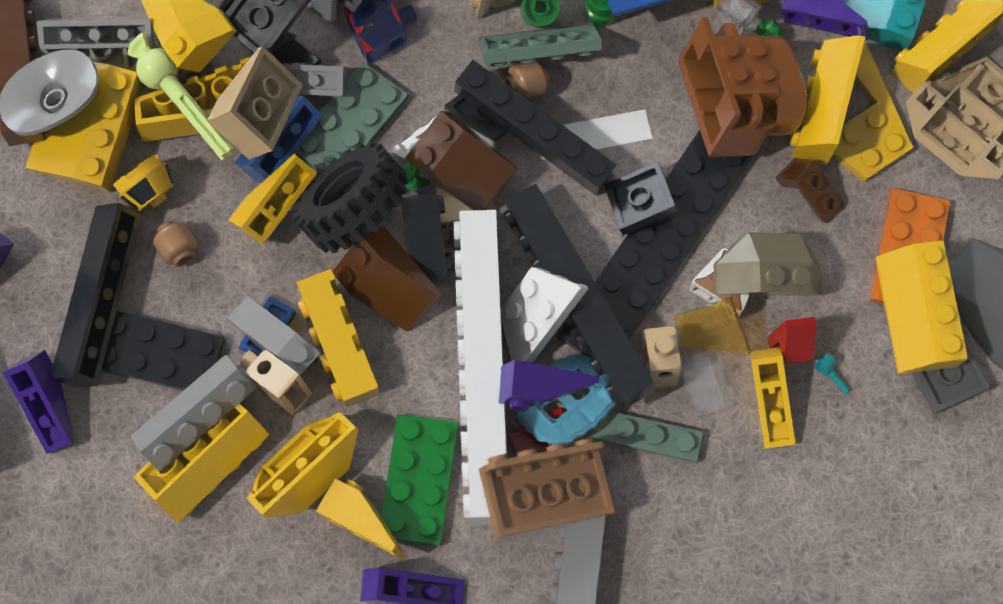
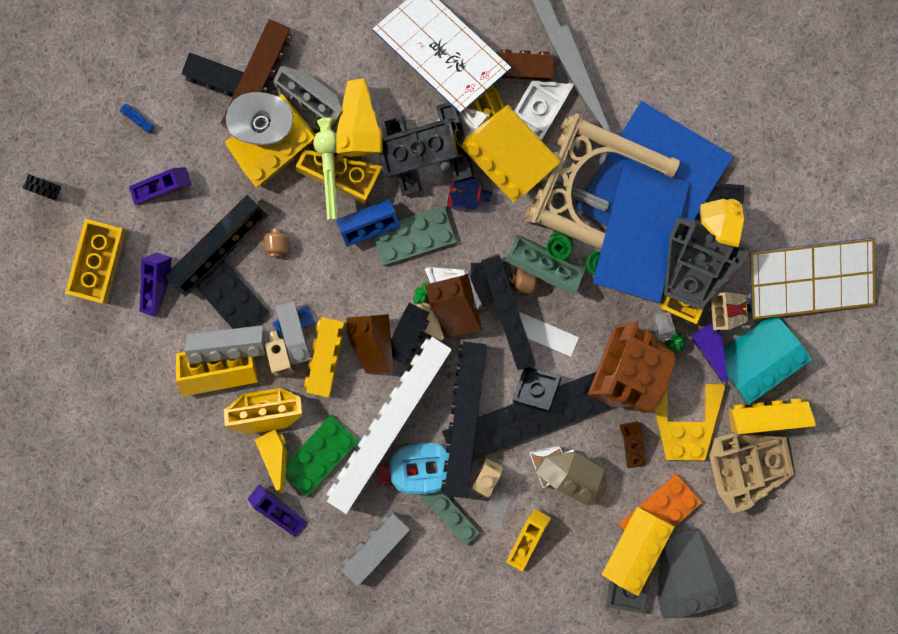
camera: 35 degrees right, 15 degrees up
(145, 184) = (280, 200): yellow cone -> none
(256, 105) = (365, 202): tan slope -> none
(272, 199) = (339, 257): yellow slope -> none
(319, 79) = (402, 197): light grey plate -> none
(350, 197) = (384, 303): black tyre -> none
(532, 384) = (406, 459): dark purple slope -> none
(537, 311) = (436, 414): white wing -> none
(546, 488) = (374, 514): medium nougat bracket -> none
(713, 327) = (524, 484): clear yellow wing -> none
(795, 339) = (559, 522): red slope -> none
(825, 366) = (569, 542): teal hand -> none
(827, 98) = (676, 405): yellow slope -> none

